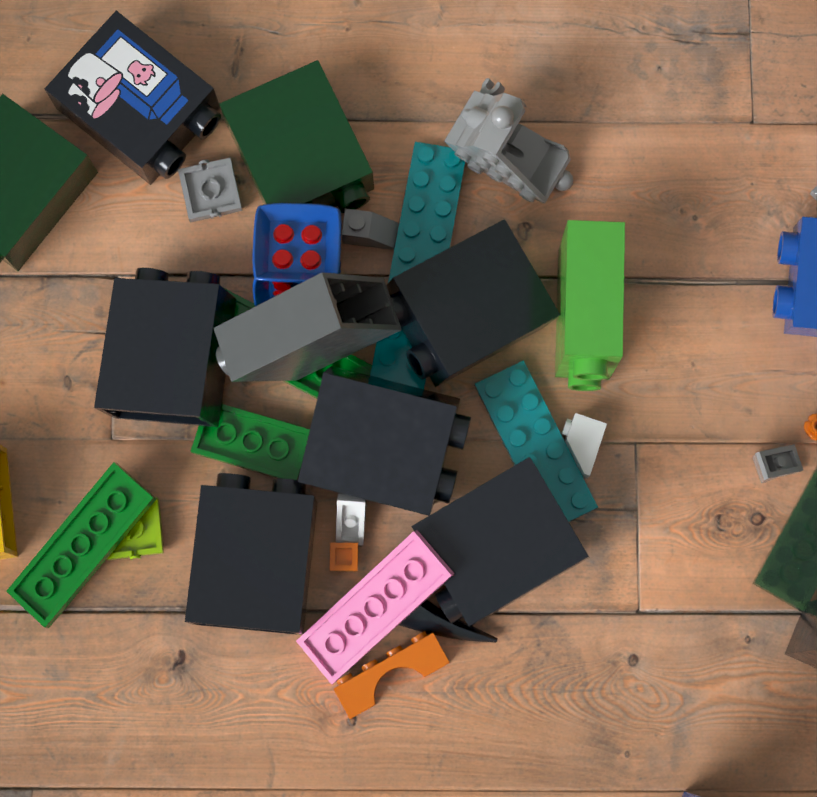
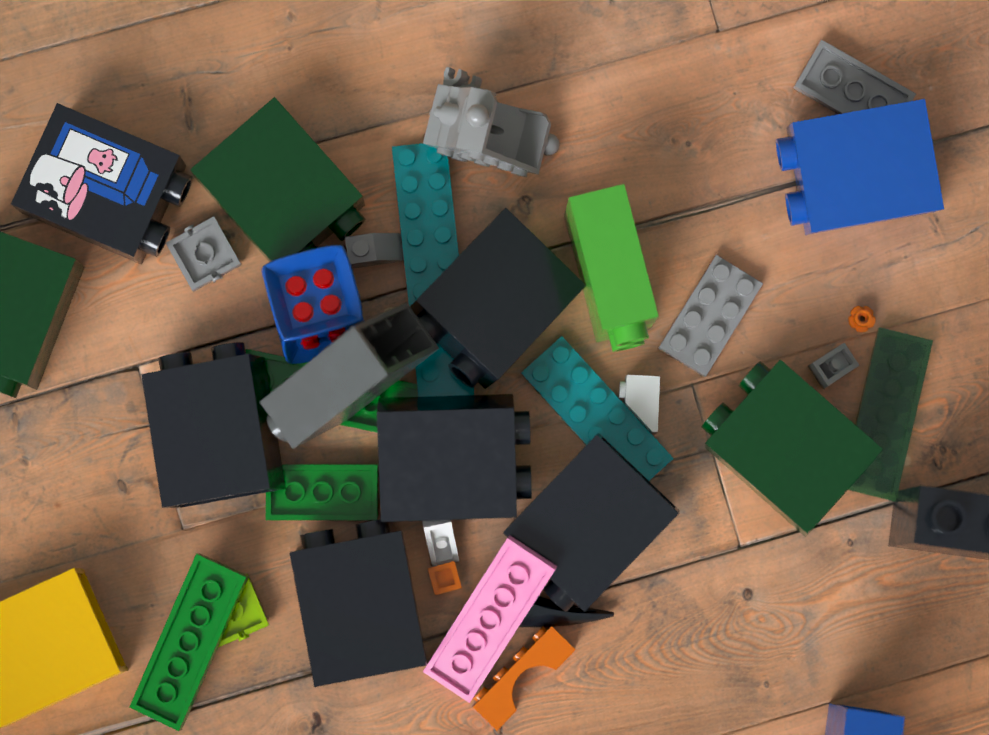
camera: 25 degrees left, 5 degrees up
(671, 383) = (710, 316): none -> light grey plate
(716, 525) = (789, 445): none -> dark green brick

